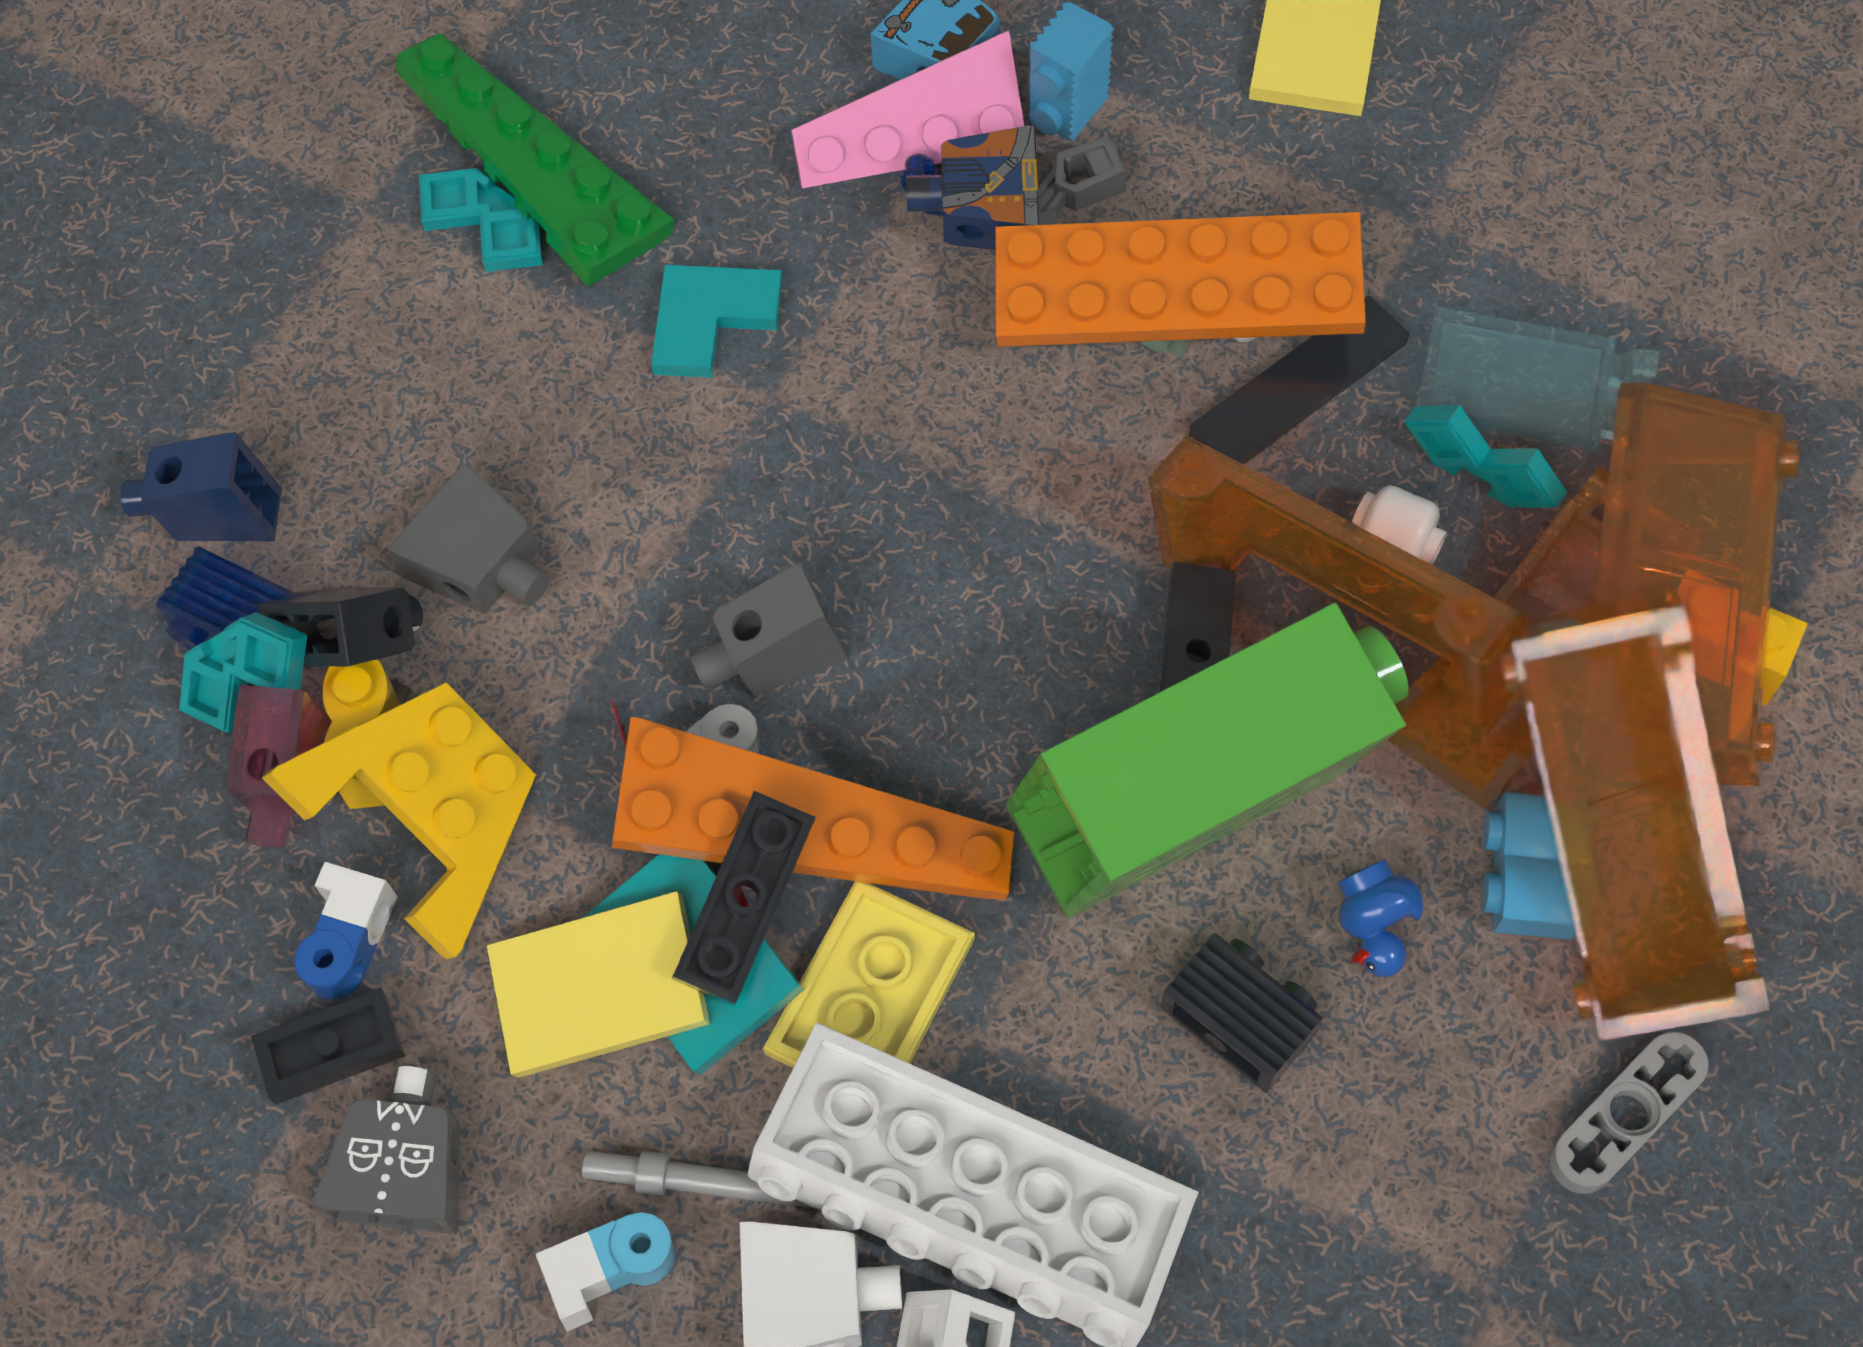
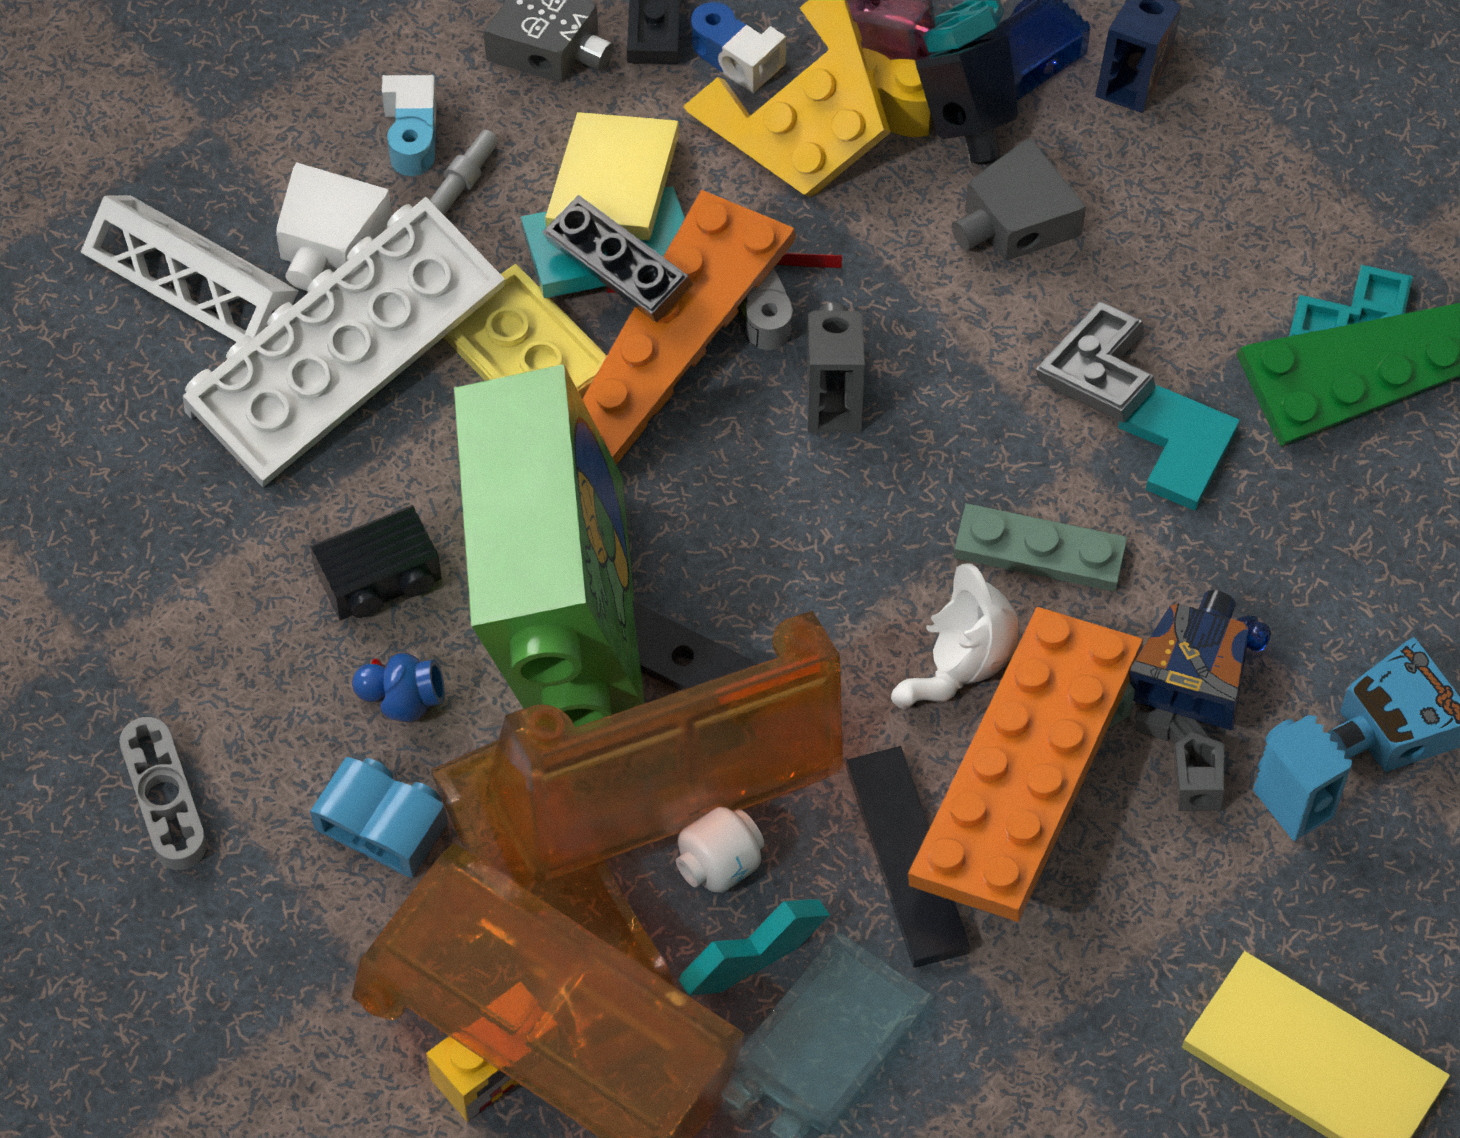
camera: 110 degrees right, 5 degrees down
(659, 419) = (1090, 365): none -> dark grey tile
(895, 392) = (1040, 547): none -> sand green plate
(914, 115) = (1310, 647): bright pink wing -> none
(1051, 395) = (973, 642): none -> white piece
(1636, 814) = (355, 845): clear orange windscreen -> none

